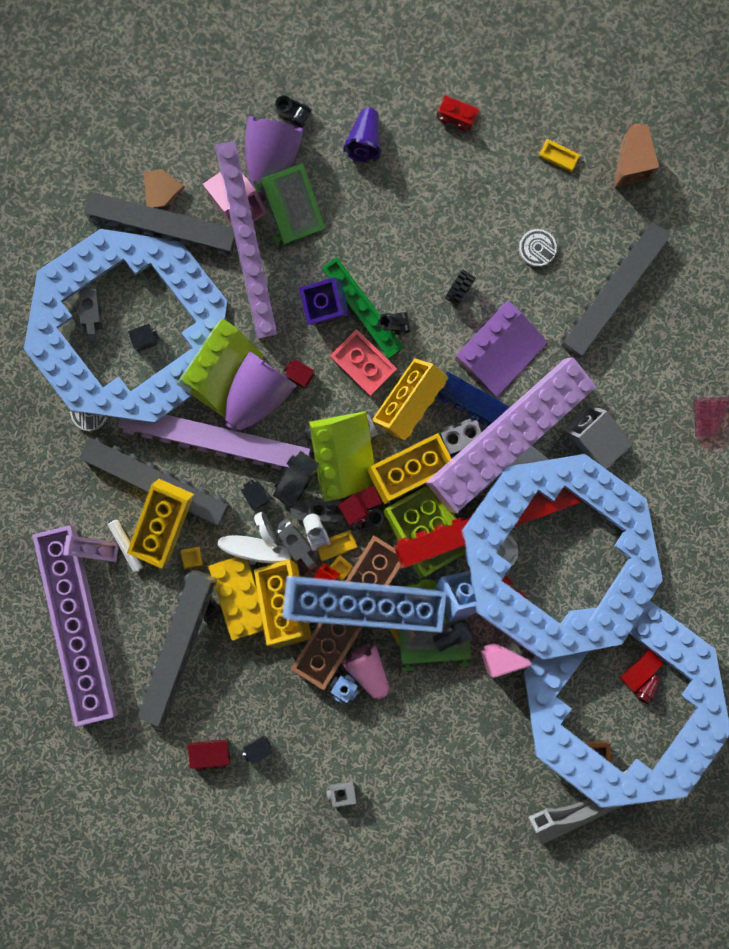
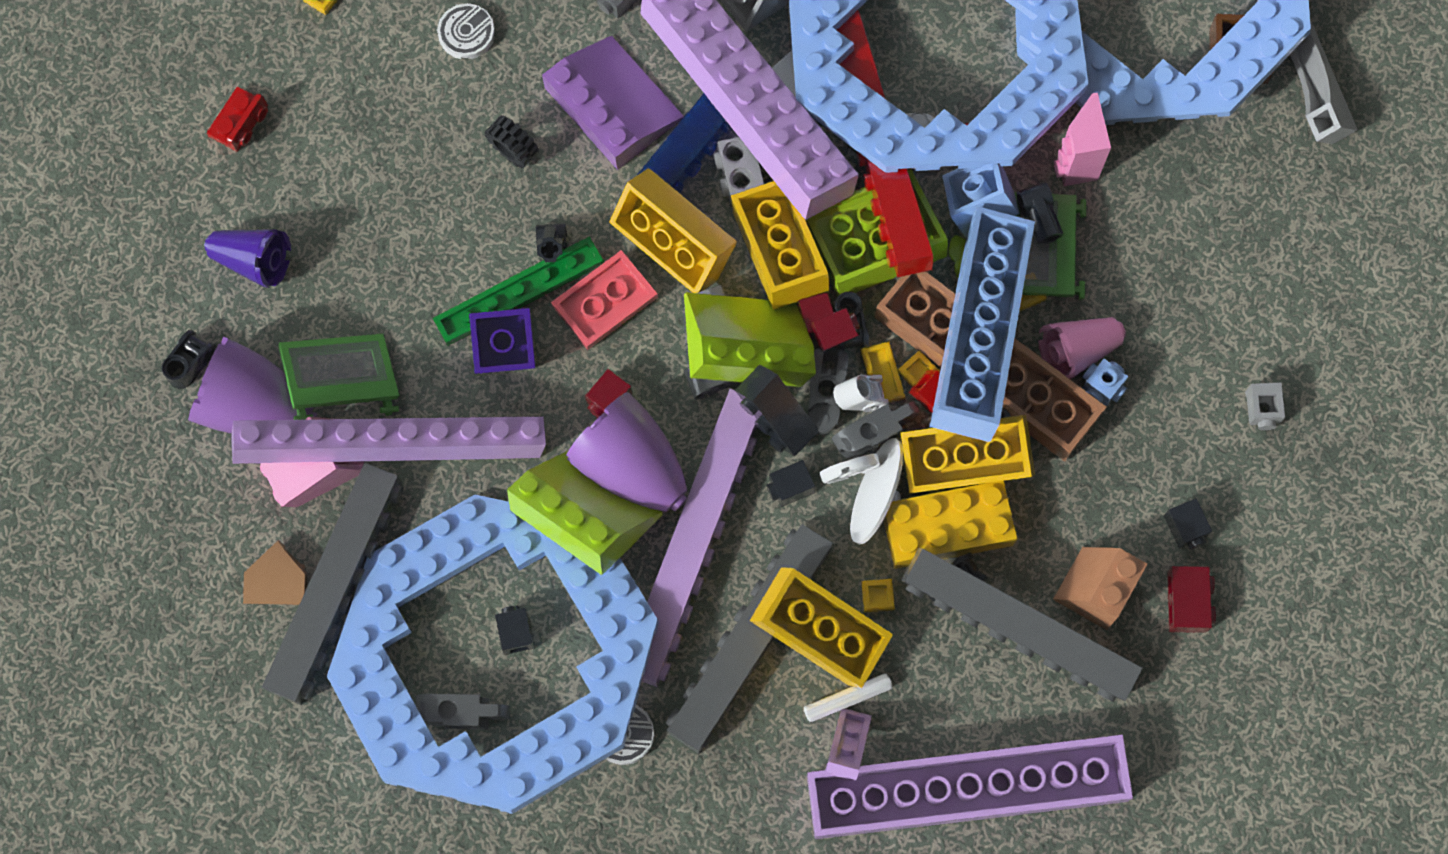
camera: 80 degrees left, 10 degrees down
(209, 695) = (1100, 584): none -> nougat slope

